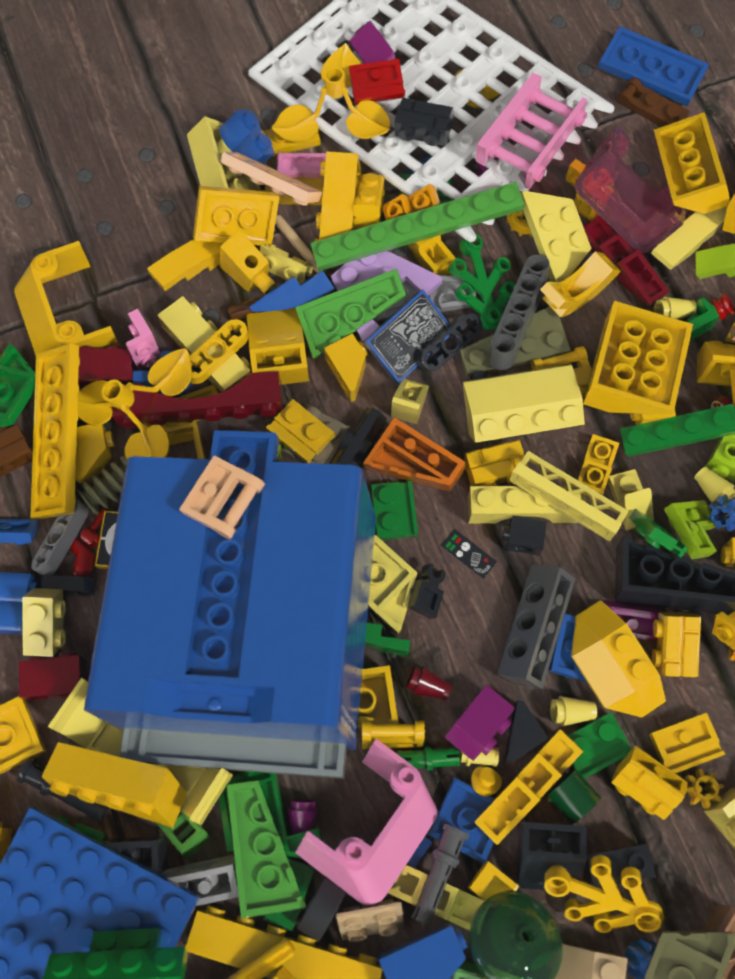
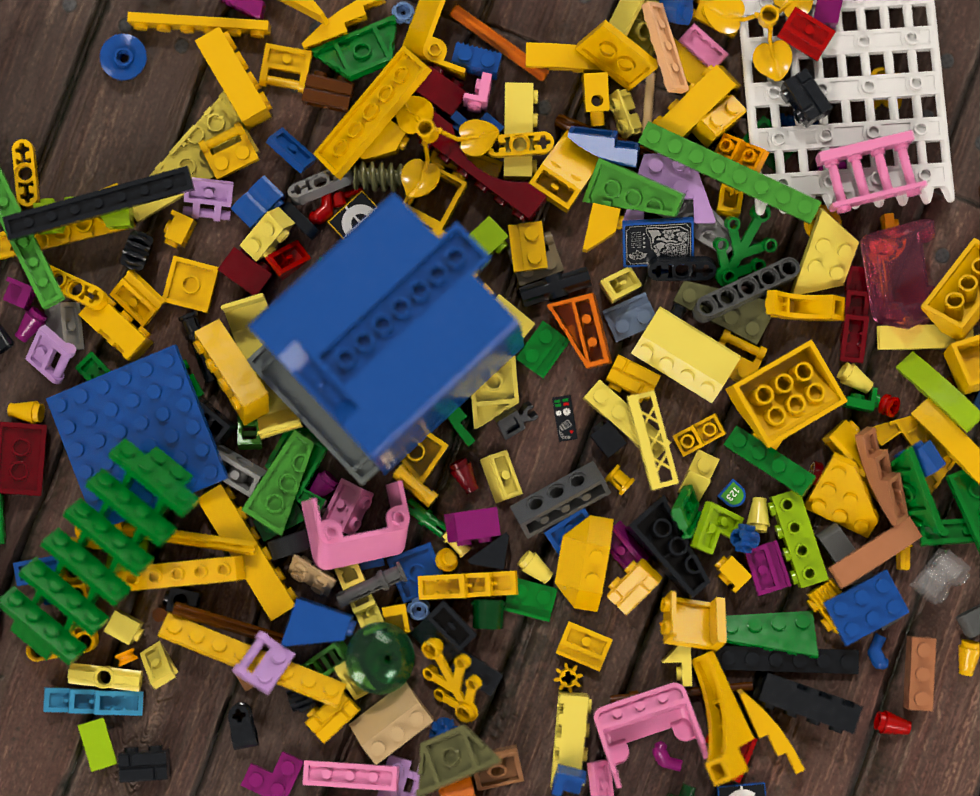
camera: 45 degrees right, 15 degrees up
(14, 330) = (407, 8): none -> medium blue plate
(81, 632) = (288, 259): none -> red slope
(115, 316) = (477, 60): none -> blue brick
(123, 295) = (496, 41): none -> orange axle
(214, 490) = (422, 263): light nougat plate -> none
(345, 814) = (348, 506): none -> bright pink bracket
(443, 419) = (629, 317): none -> sand blue plate
(462, 656) = (501, 476): none -> light yellow slope
(511, 858) = (414, 613): none -> medium blue plate
(570, 561) = (619, 479): none -> yellow bush
(649, 783) = (538, 646): yellow brick -> none
(674, 489) = (732, 494): none -> tile

